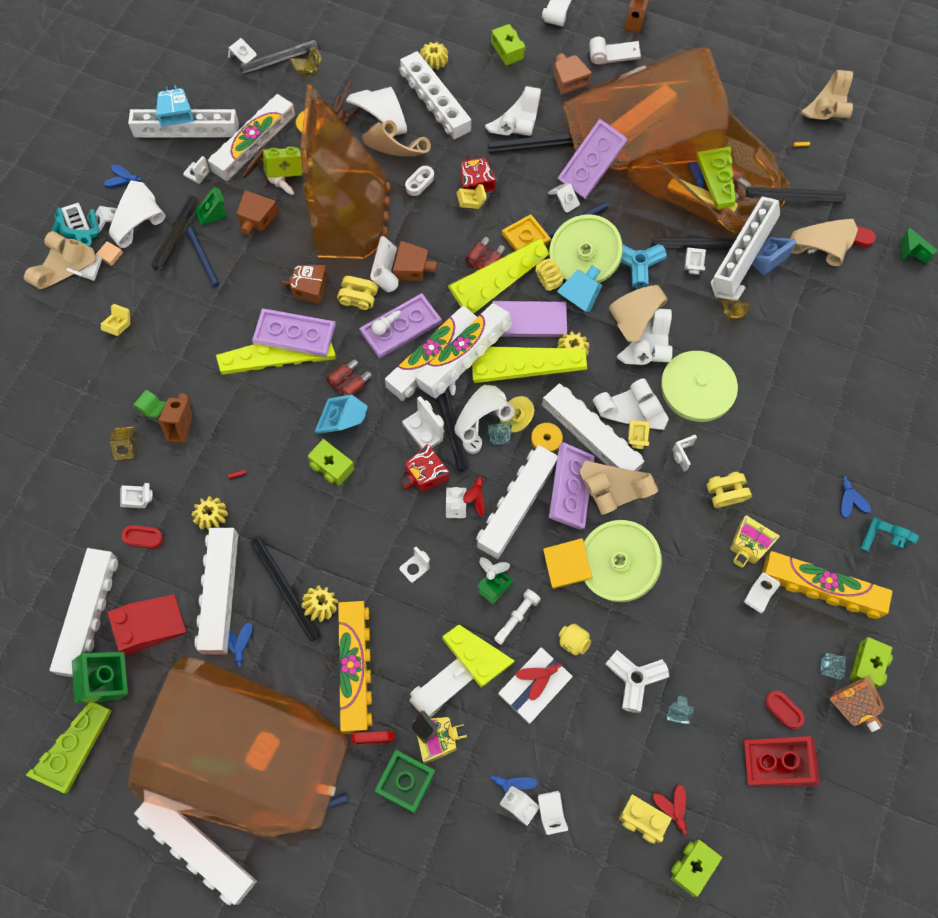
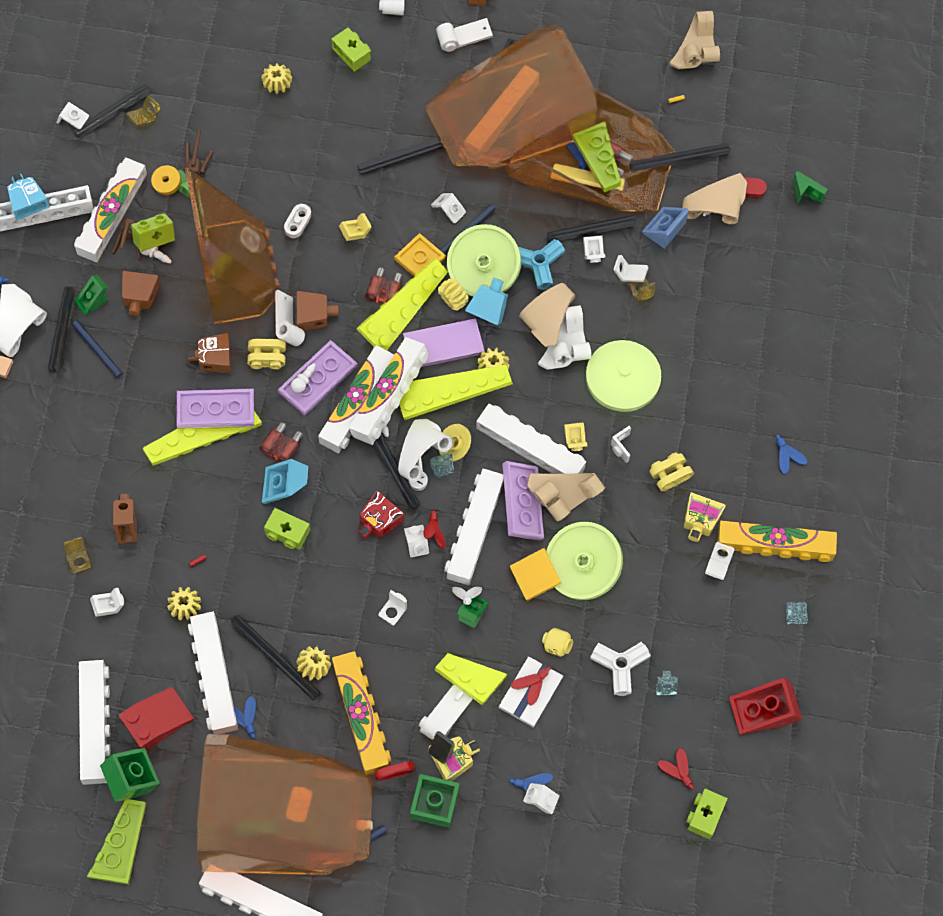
camera: 15 degrees left, 0 degrees up
(117, 321) = (33, 434): light yellow bracket -> none
(142, 537) = (124, 640): red tile -> none
(149, 404) = (93, 512): bright green panel -> none
(200, 170) = (69, 258): white bracket -> none
(382, 105) = (239, 147): white panel -> none
(382, 141) = (246, 185): tan panel -> none
(425, 425) = (368, 473): white bracket -> none
(435, 95) = (299, 125): white brick -> none
(477, 172) = (354, 201): red torso -> none
(520, 117) = (382, 129): white panel -> none
(530, 599) = (508, 614): white piece -> none
(547, 430) = (488, 451): yellow piece -> none
(552, 812) = (570, 796): white bracket -> none
(570, 73) = (424, 69): nougat torso -> none
(593, 158) = (469, 163): lavender tile -> none
(635, 404) = (565, 408): white panel -> none
(645, 819) = (654, 784): light yellow bracket -> none
(747, 246) = (641, 224): white brick -> none
(784, 710) = (760, 662): red tile -> none
(860, 703) = (824, 639): torso -> none
(880, 656) = (824, 612): lime brick -> none
(901, 535) = (833, 479): teal piece -> none

